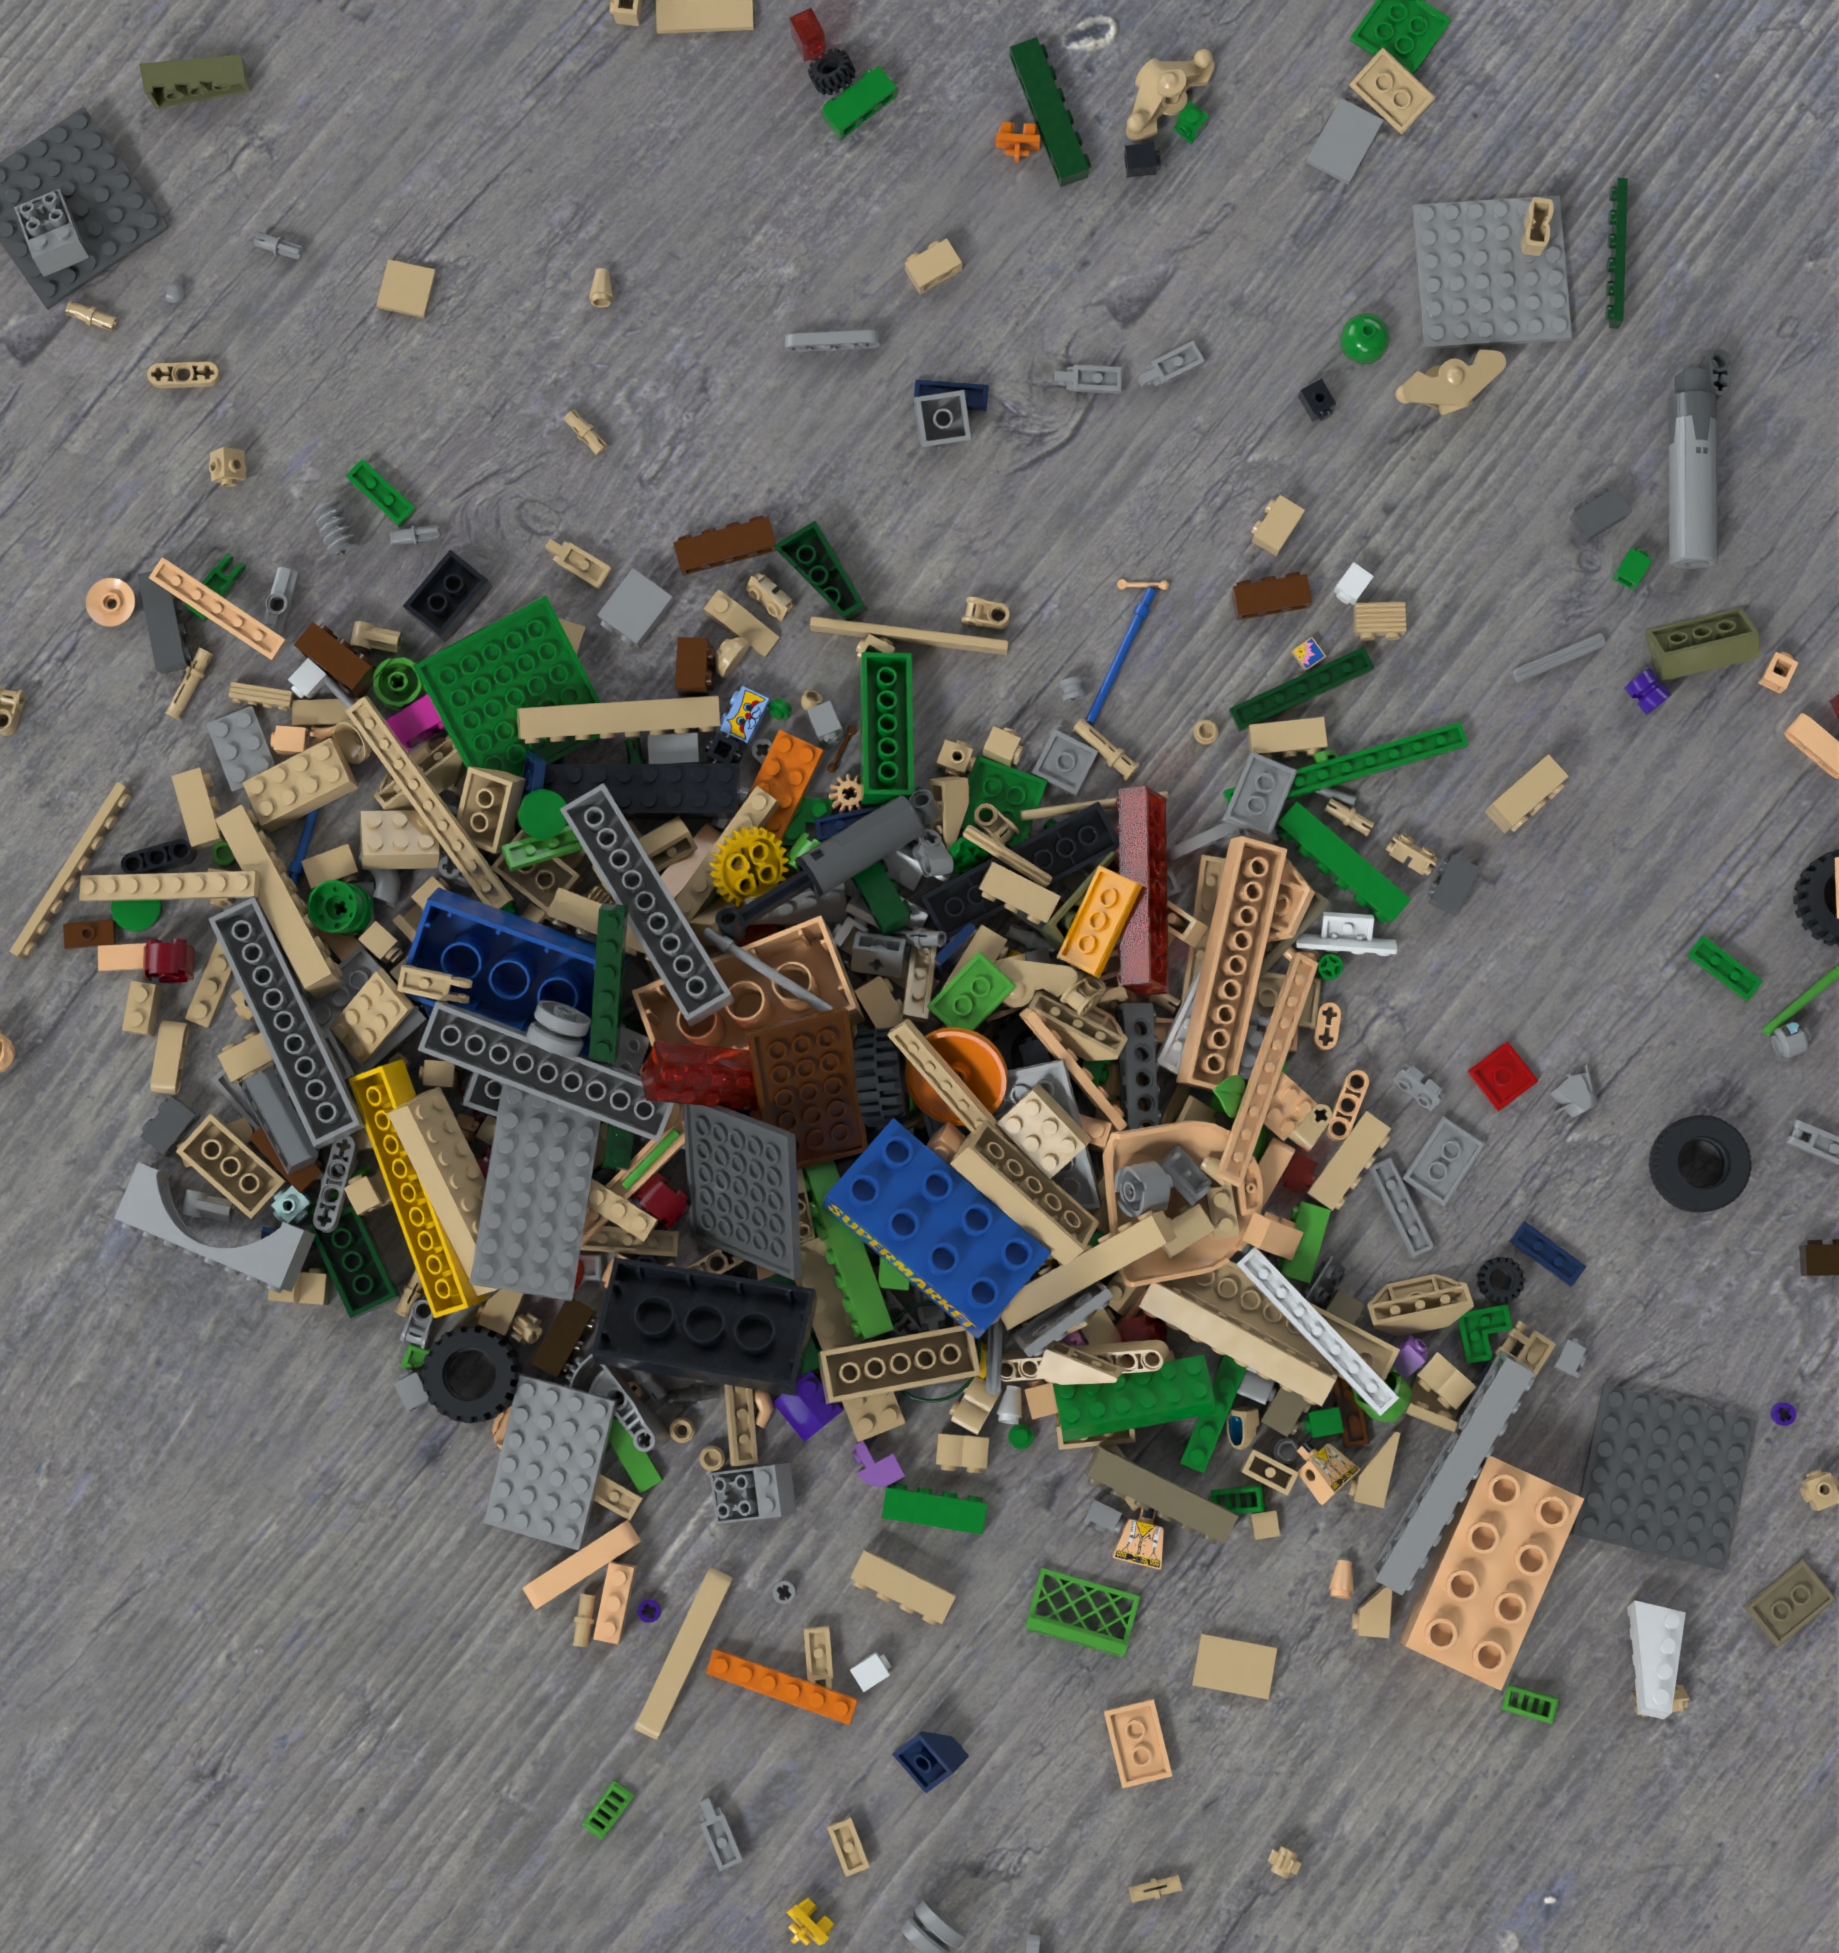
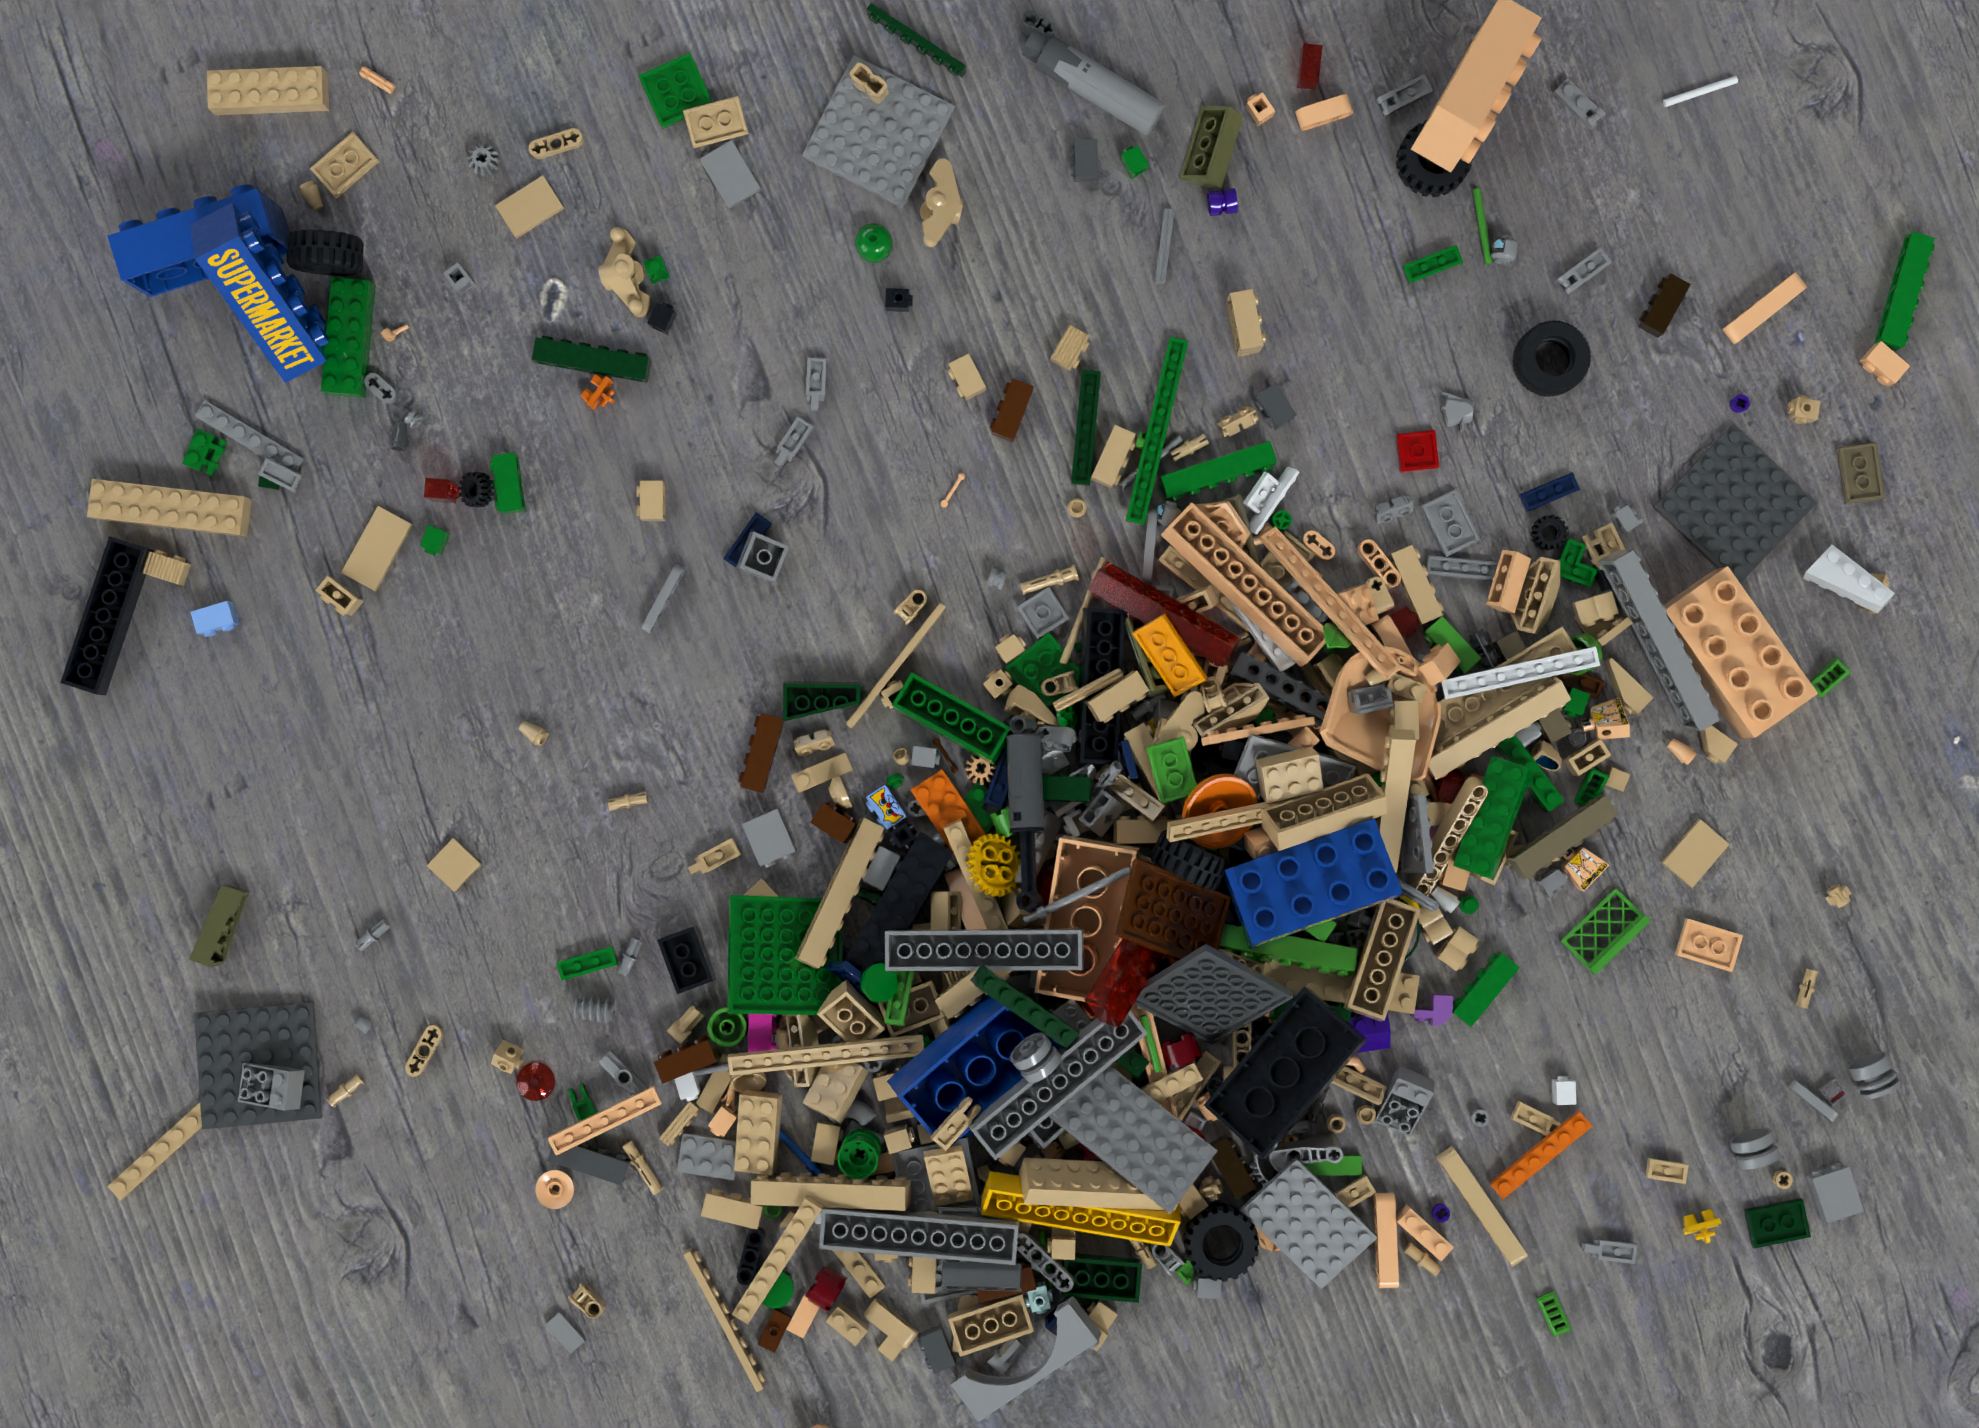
camera: 65 degrees left, 5 degrees up
(140, 1074) = (890, 1348): none -> tan tile
(223, 524) = (544, 1077): none -> clear red dish
(749, 61) = (434, 540): none -> green brick
(903, 1587) = (1522, 1038): tan brick -> none
(930, 1758) = (1643, 1084): dark blue slope -> none
(1072, 1366) = (1453, 844): tan slope -> none
(1141, 612) = (971, 502): blue bar -> none
(1143, 1188) = (1366, 732): light grey brick -> none
(1259, 795) = (1143, 498): light grey tile -> none
(1308, 654) = (1064, 409): tile -> none
(1353, 584) = (1036, 351): white brick -> none
(1410, 1357) = (1566, 618): medium lavender brick -> none
(1416, 1263) = (1508, 581): none -> light nougat brick

